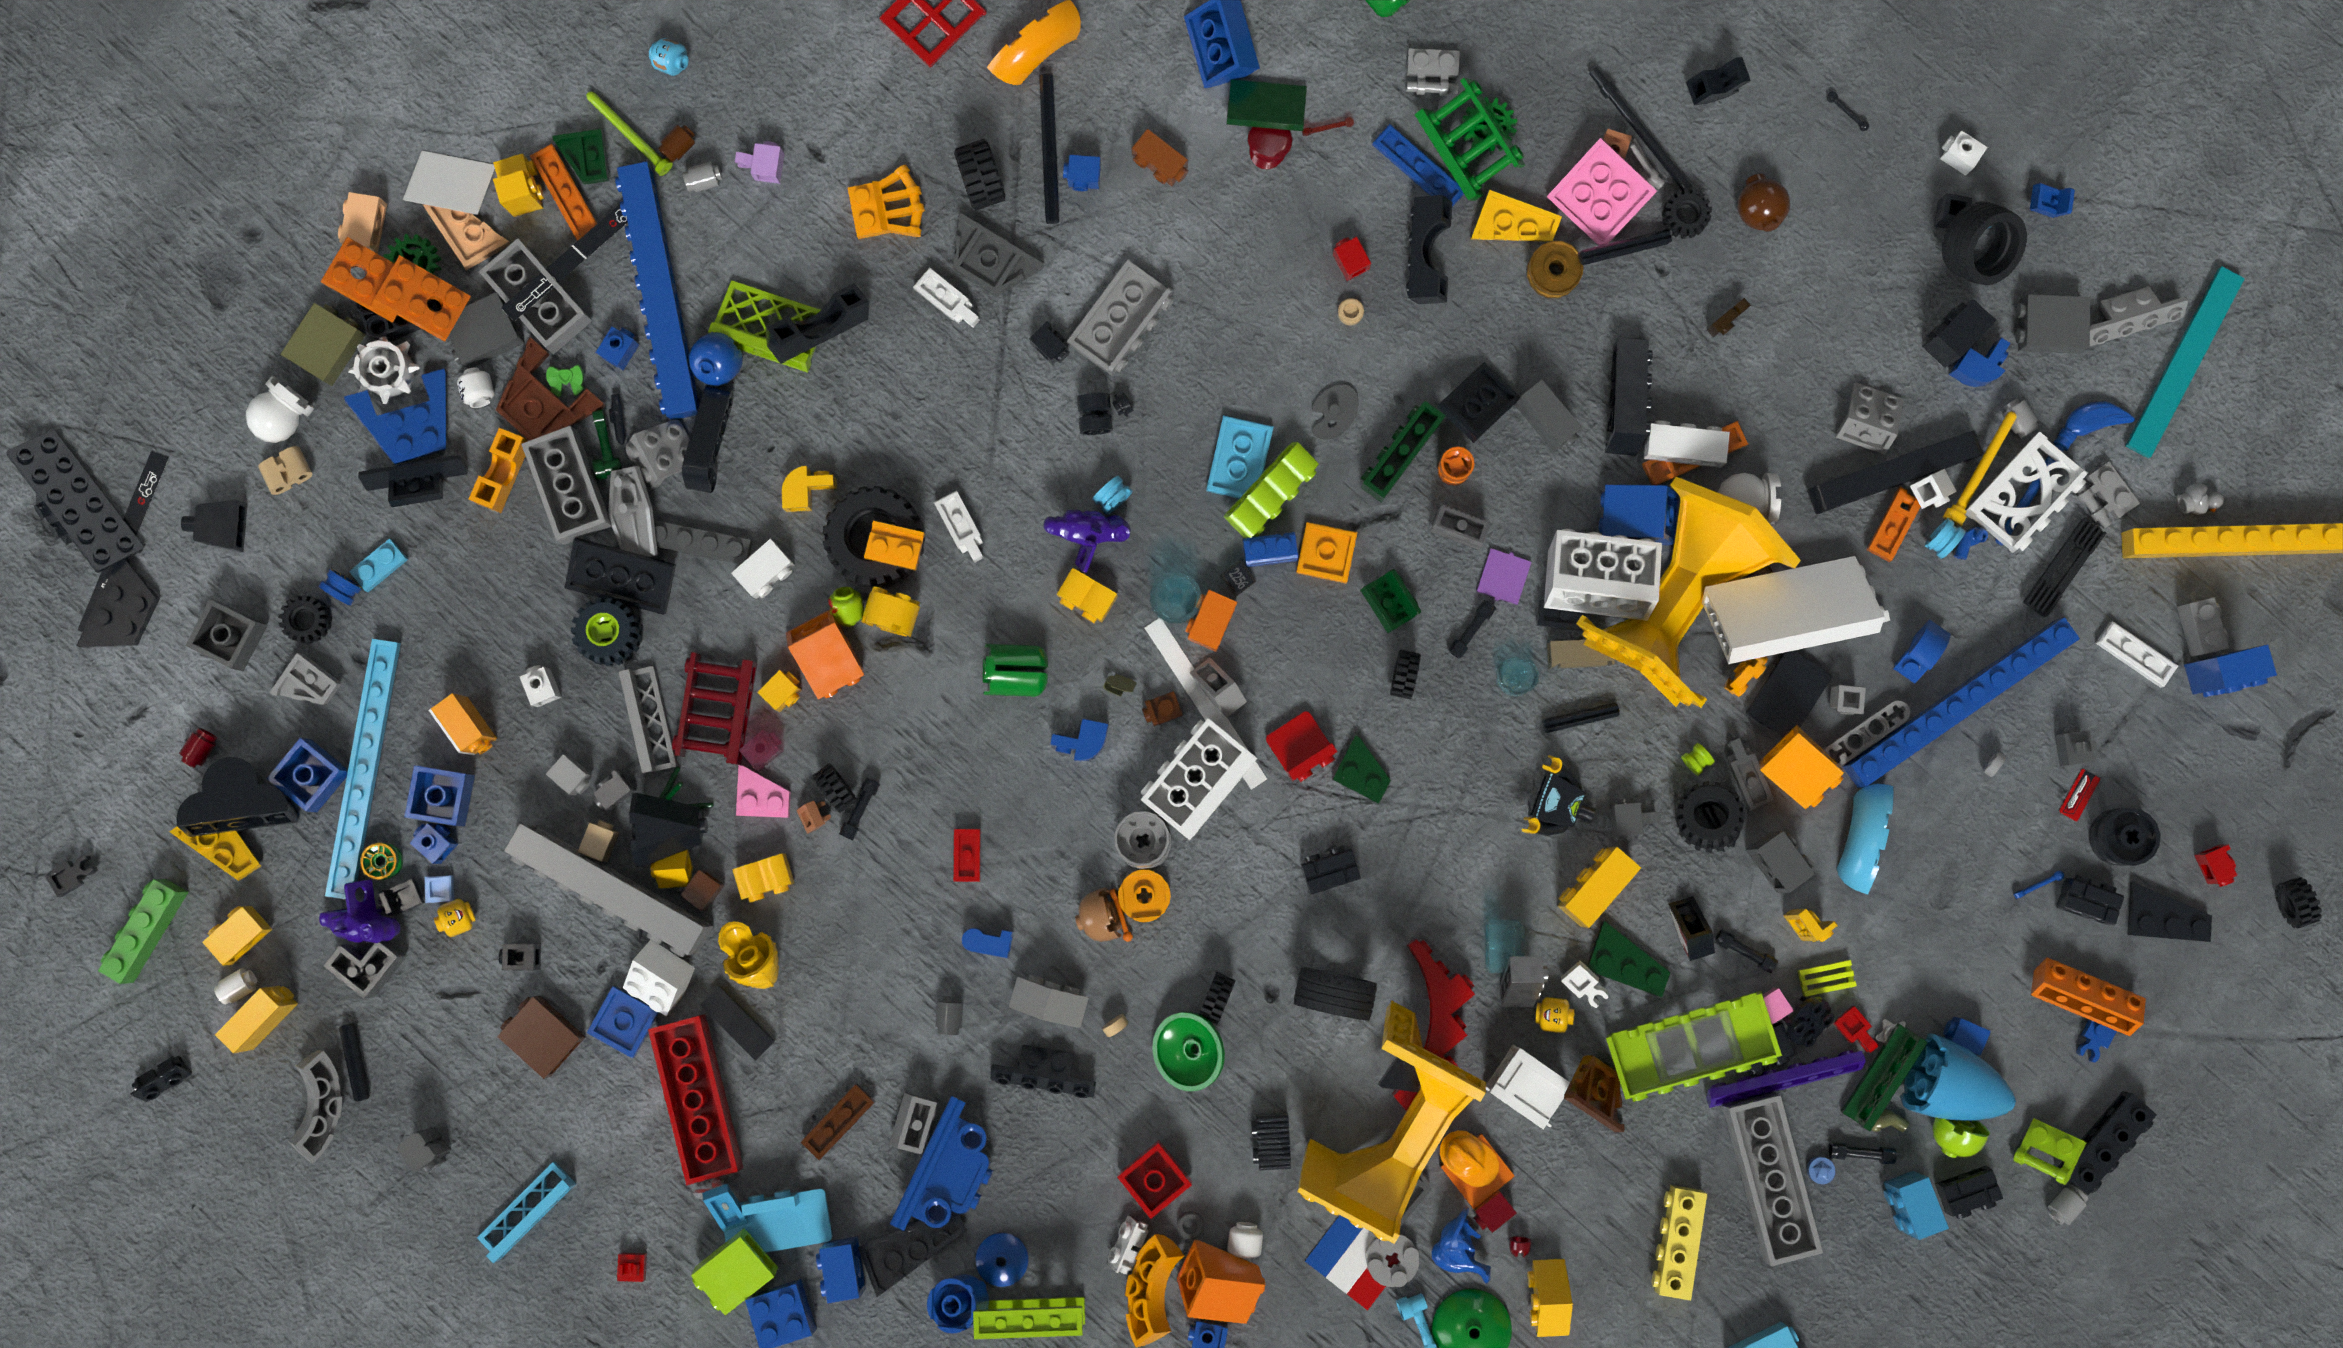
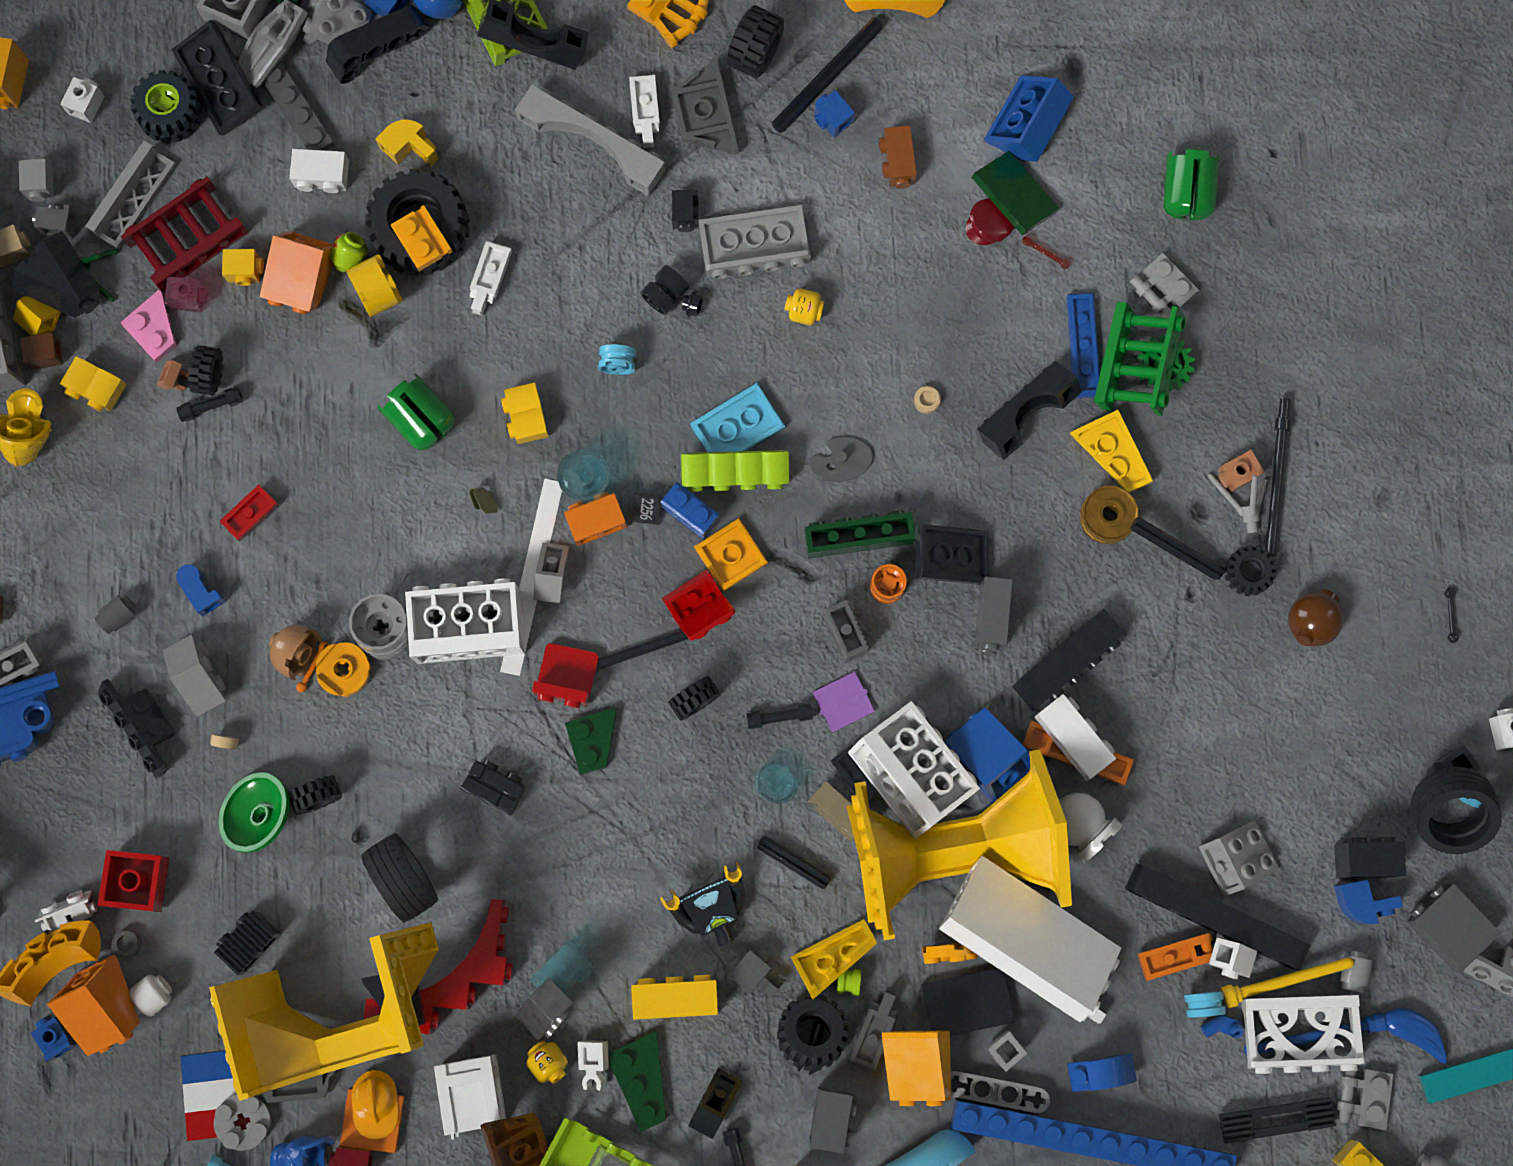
camera: 40 degrees right, 5 degrees down
(880, 370) = (546, 113): none -> light grey arch
(1088, 530) = (572, 365): dark purple piece -> none
(1089, 743) = (415, 520): blue brick -> none
(1162, 709) = (494, 548): reddish brown bracket -> none
(1203, 329) = (804, 306): none -> yellow head
(1336, 669) = (642, 649): none -> black bar
(1345, 609) = (698, 606): none -> red bracket
(1351, 258) = (965, 360): red brick -> none
(1391, 600) = (740, 637): dark green bracket -> none
(1602, 193) = (1199, 492): bright pink plate -> none
(1672, 753) = (833, 956): none -> yellow wing
(1718, 83) = (1369, 498): black brick -> none
(1725, 322) = (1198, 678): dark brown plate -> none

